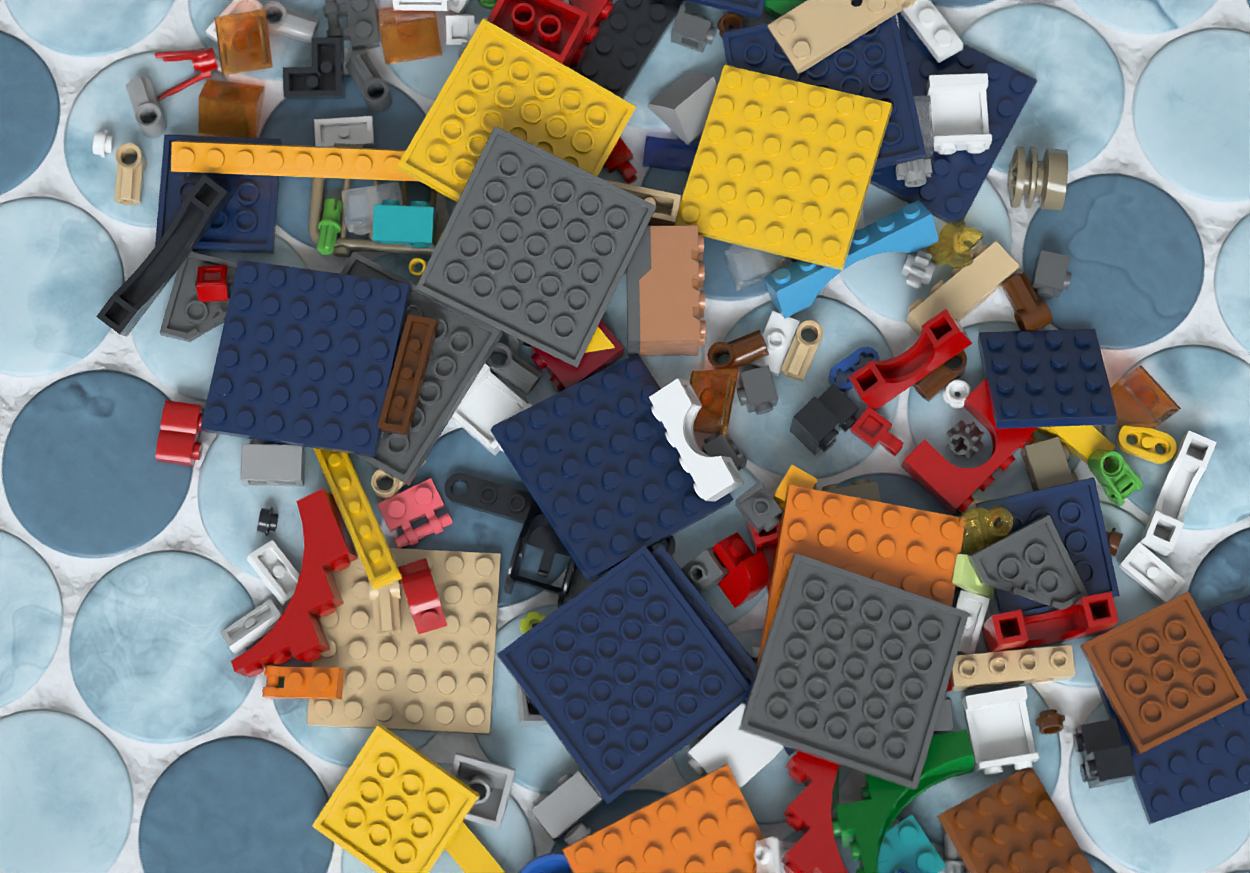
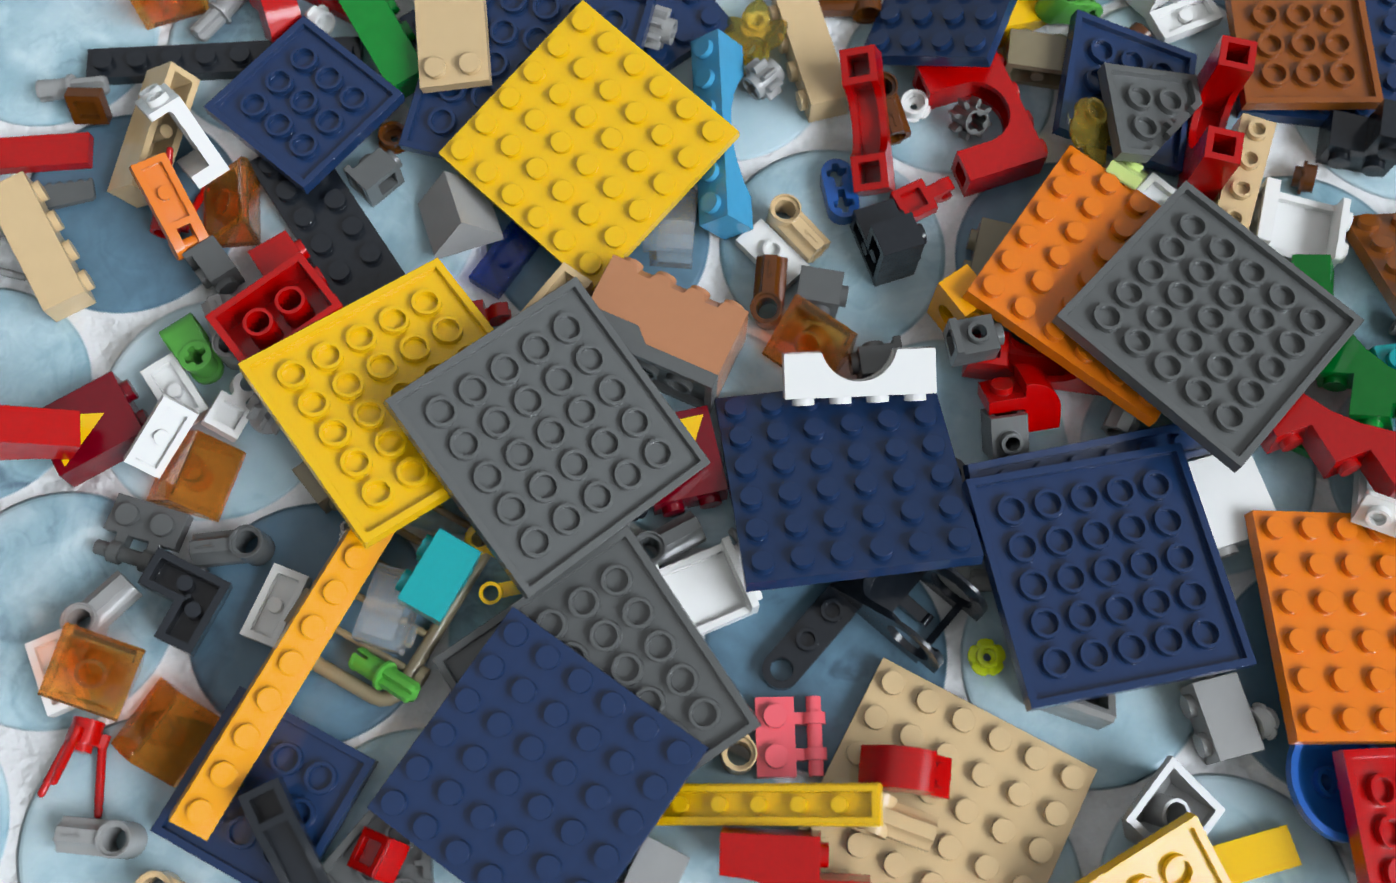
camera: 65 degrees left, 5 degrees down
(408, 374) = (628, 659): reddish brown plate -> none

